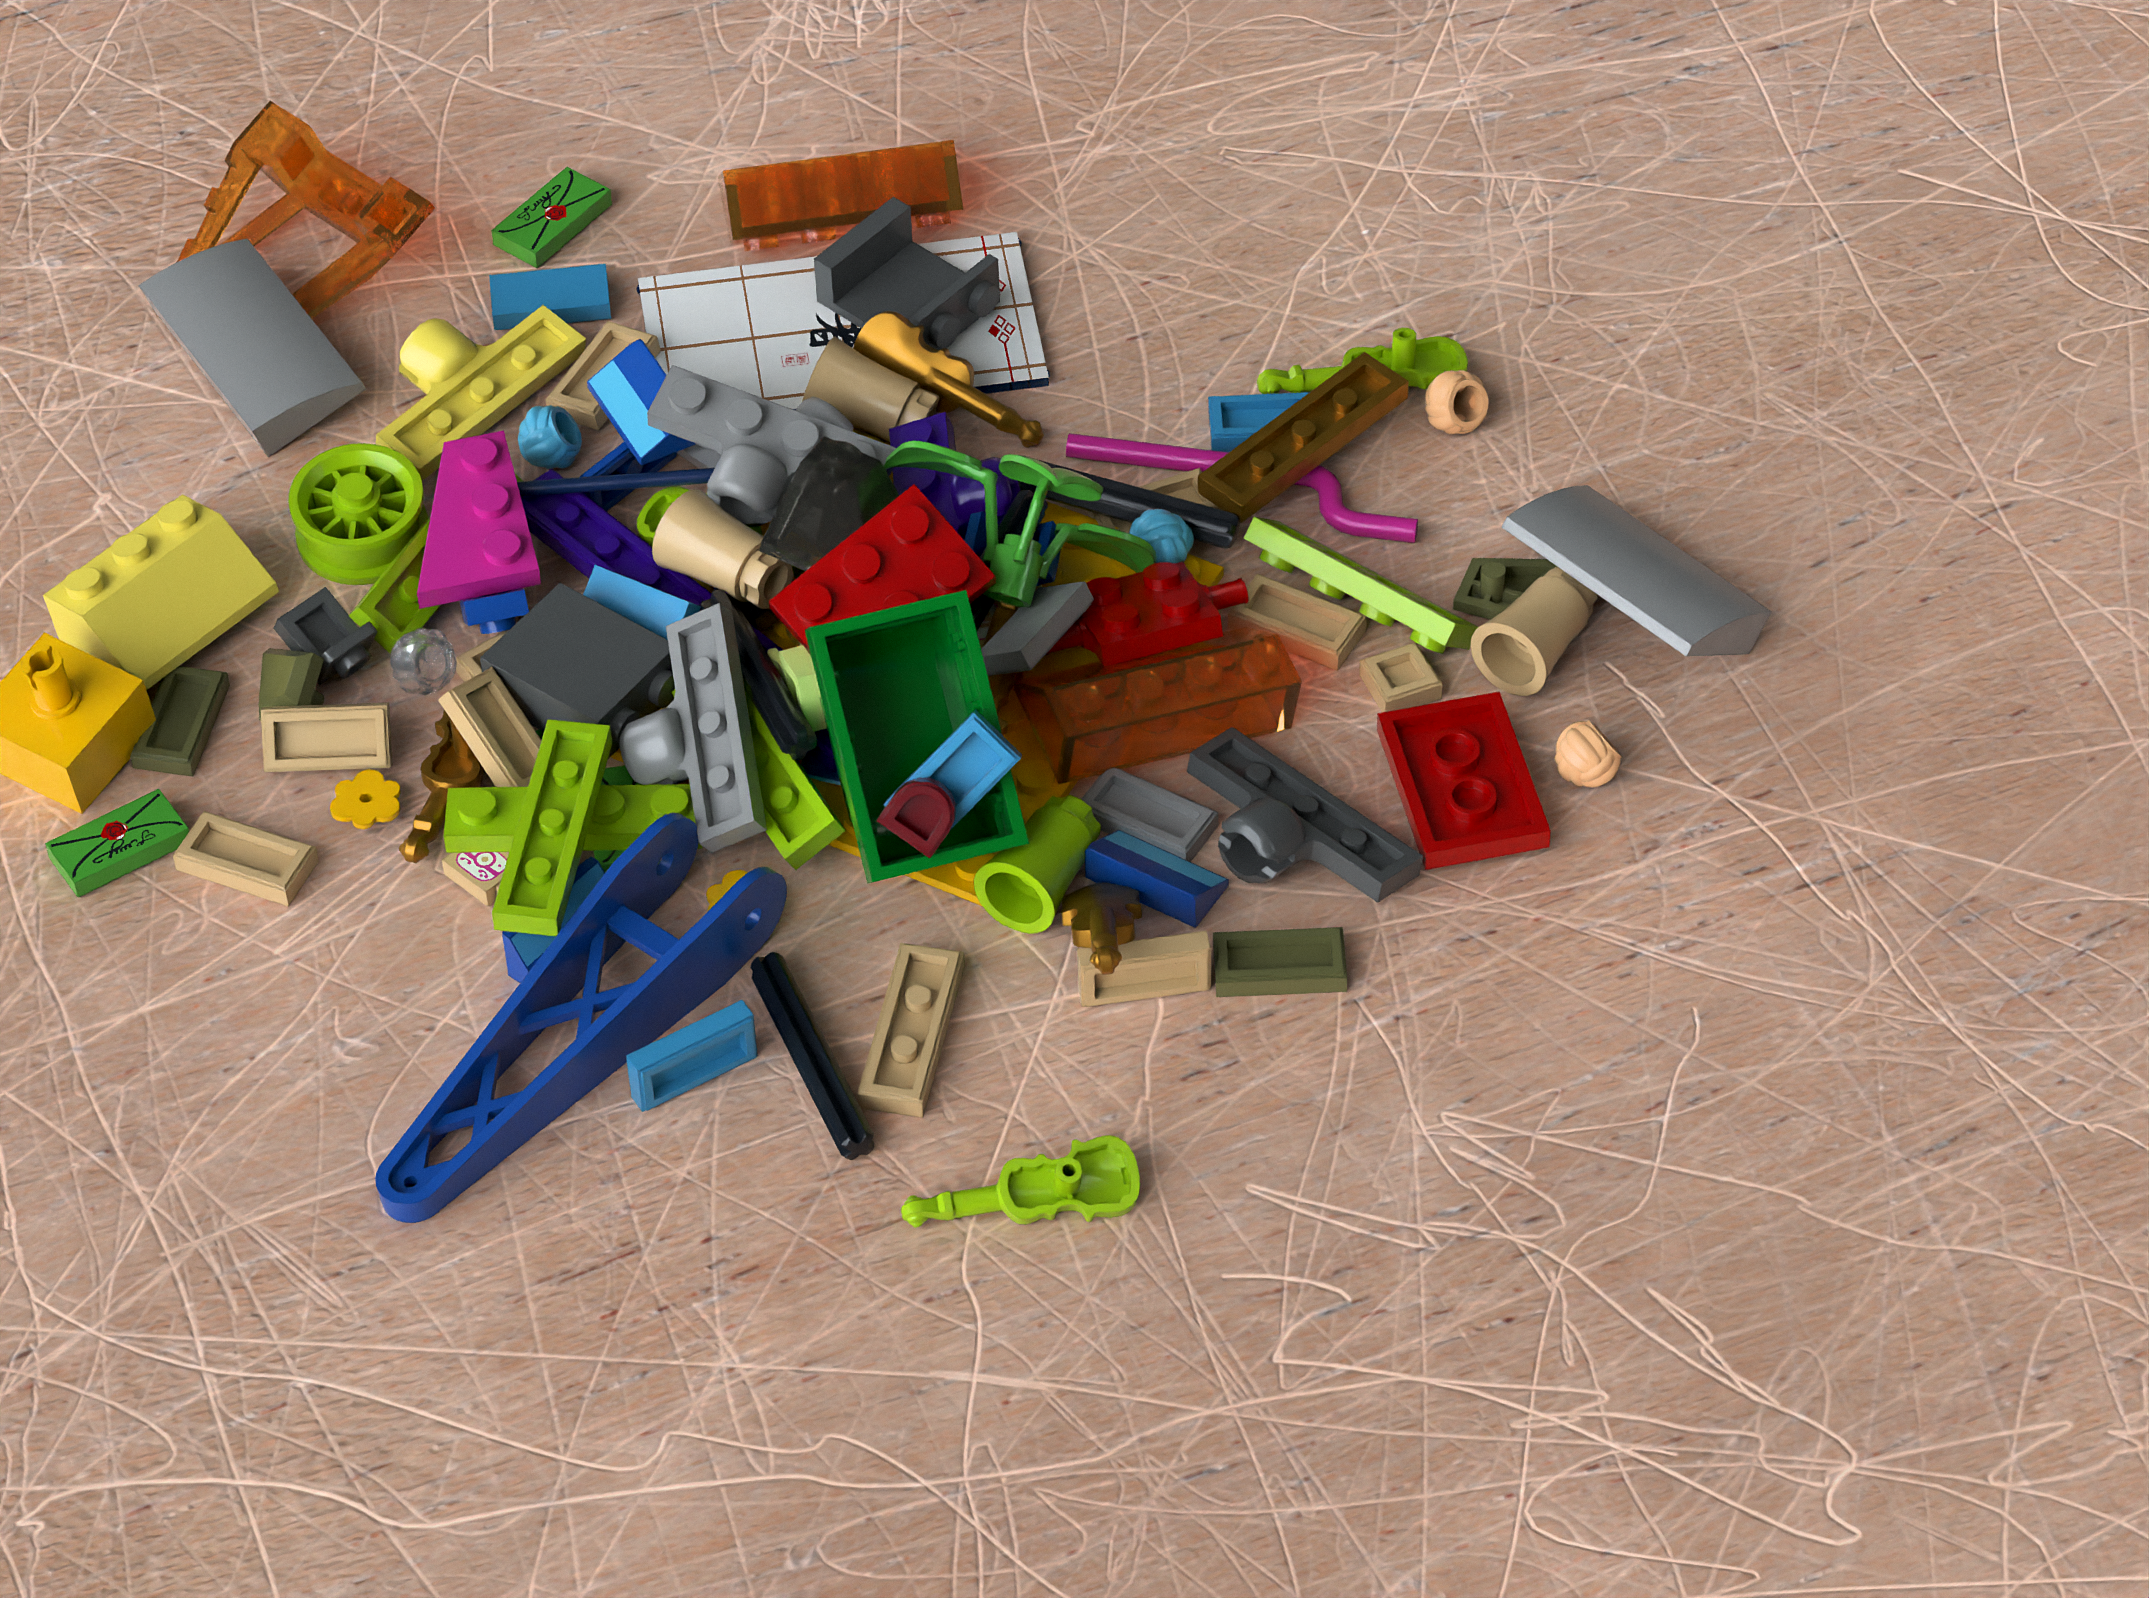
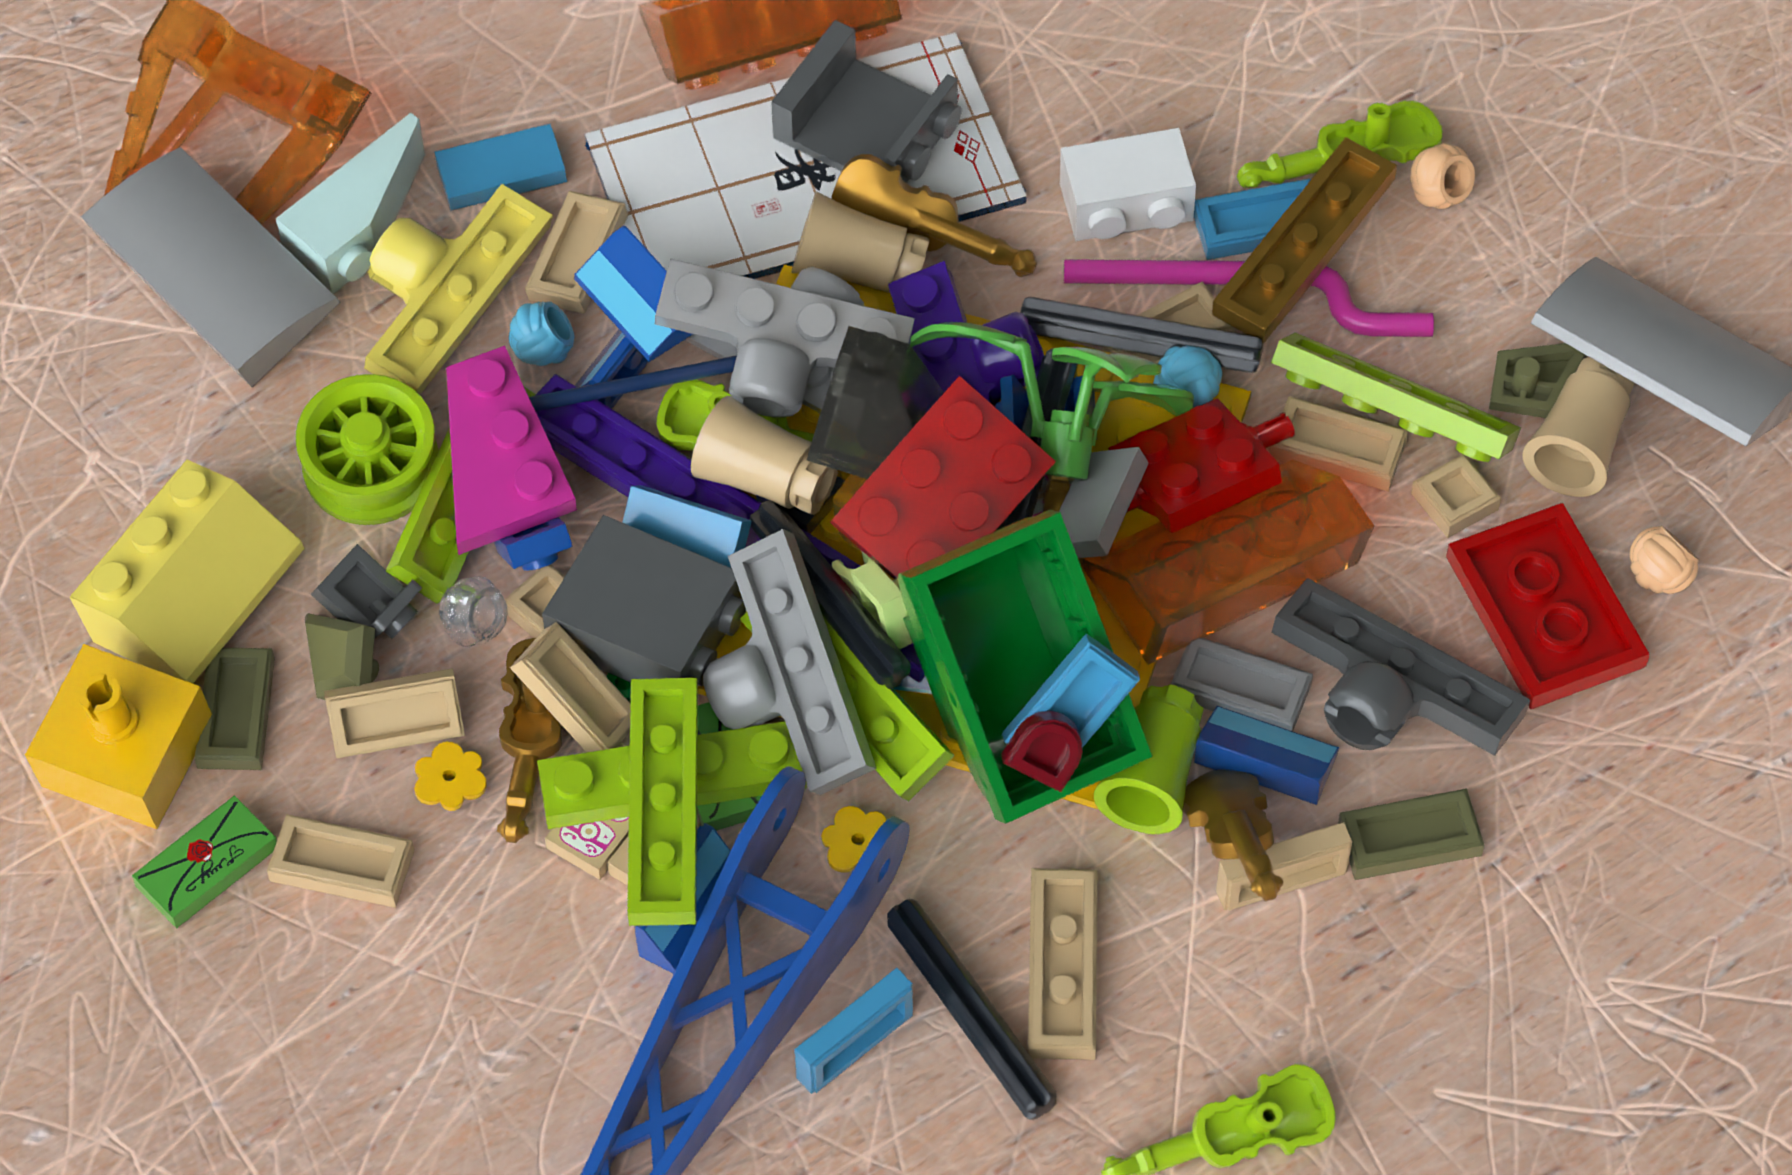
camera: 10 degrees left, 10 degrees up
(378, 317) = (349, 211): none -> light aqua slope
(551, 217) = (480, 74): bright green tile -> none
(1146, 374) = (1127, 184): none -> white piece

